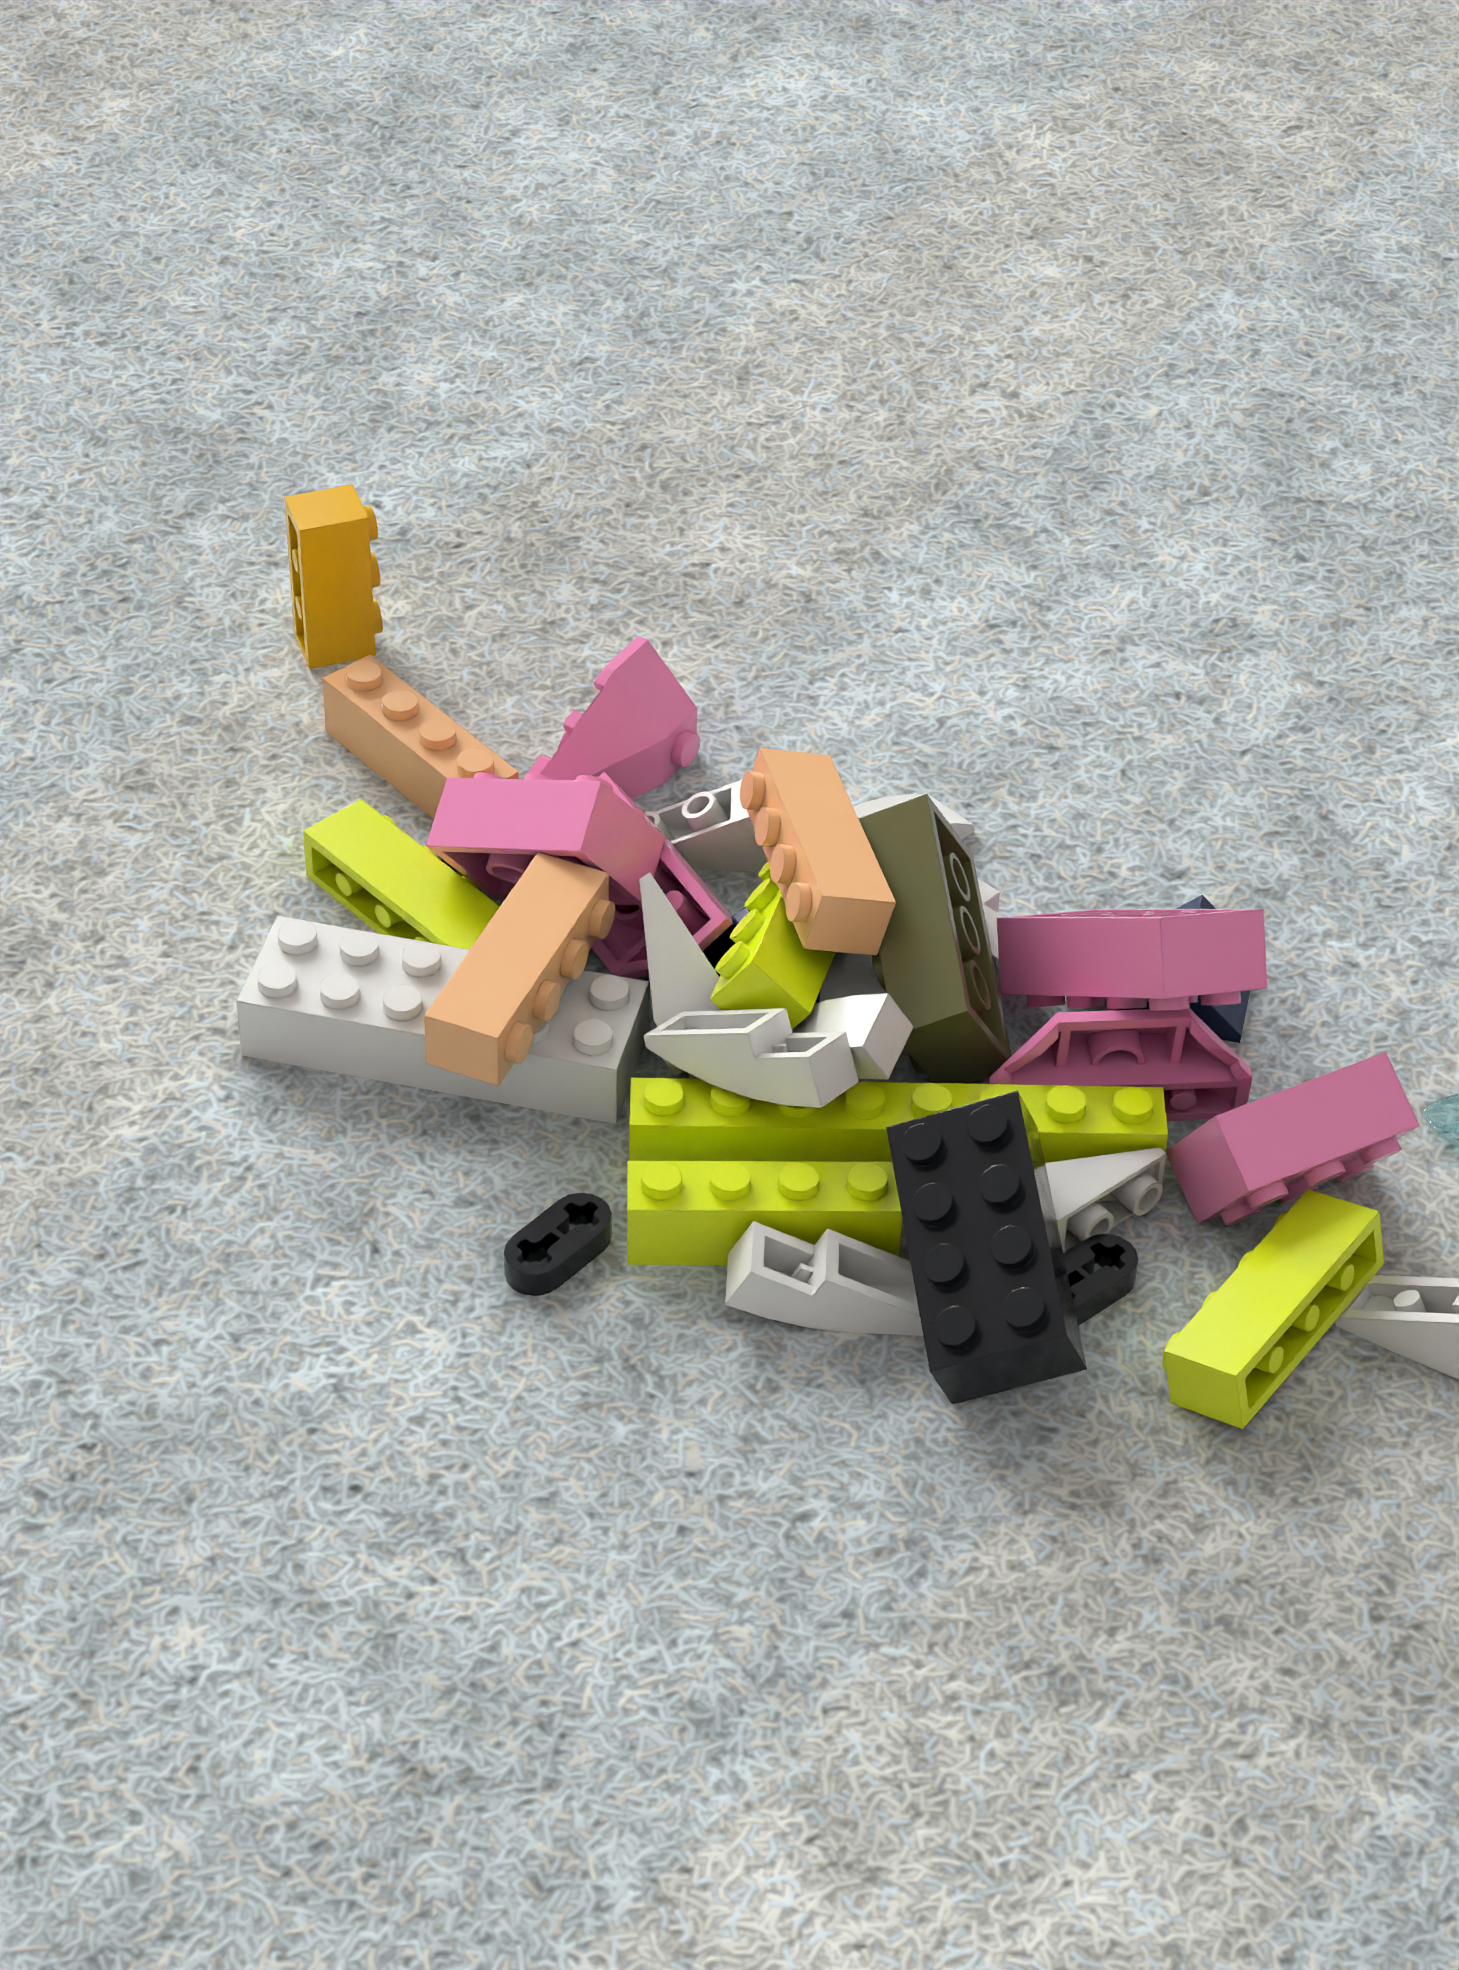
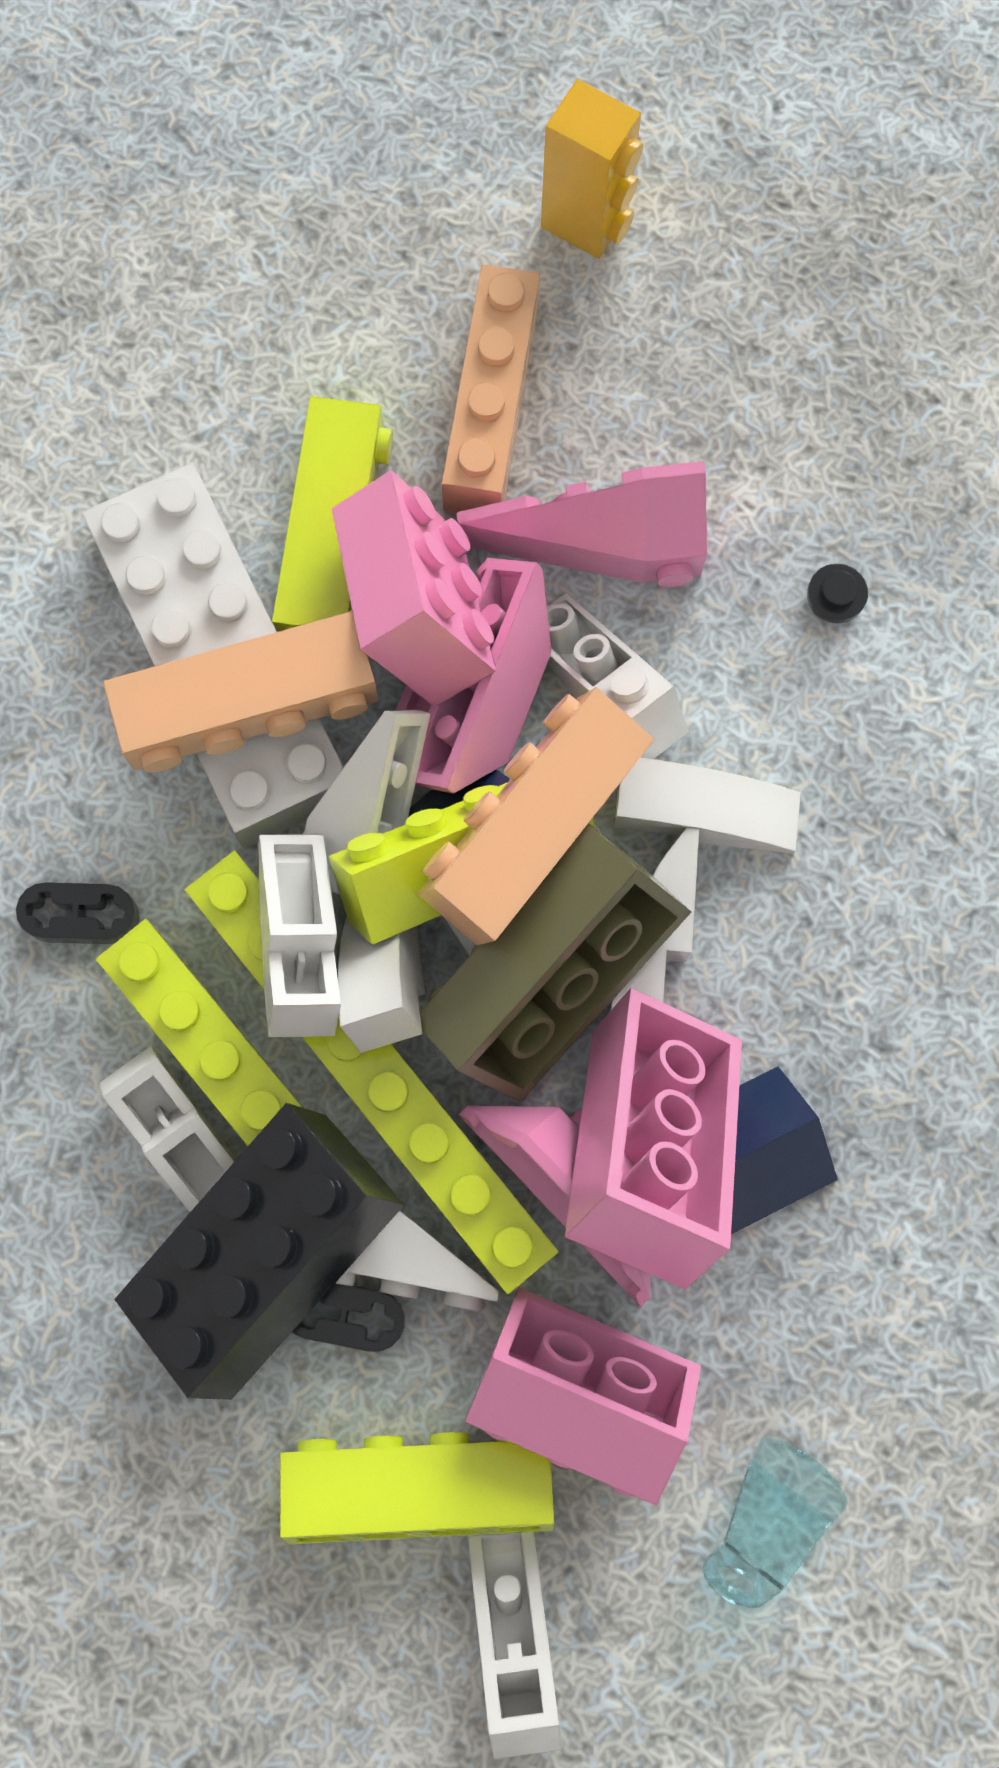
camera: 50 degrees right, 35 degrees up
(798, 687) = (837, 593): none -> black plate

